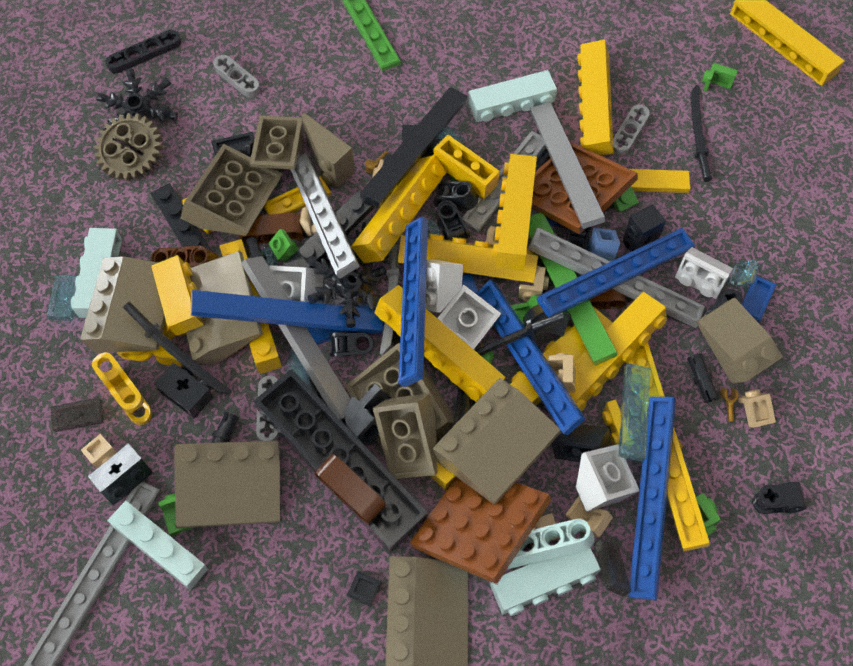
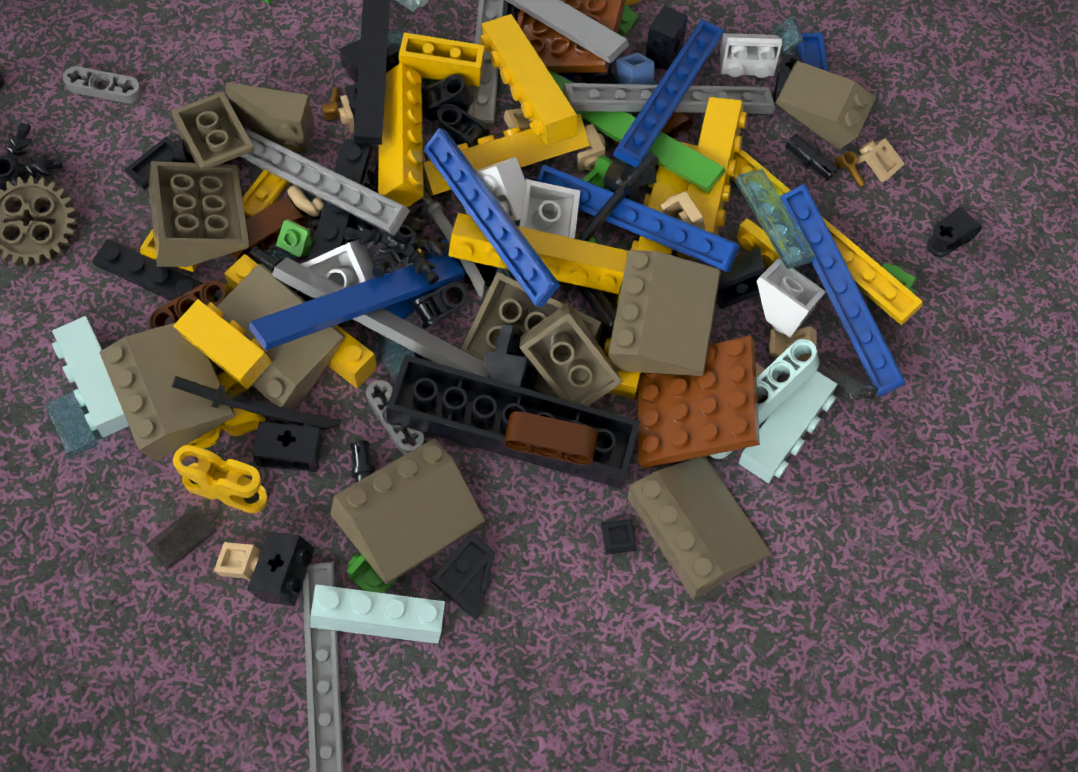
camera: 35 degrees left, 0 degrees up
(238, 553) = (466, 575): none -> black wing

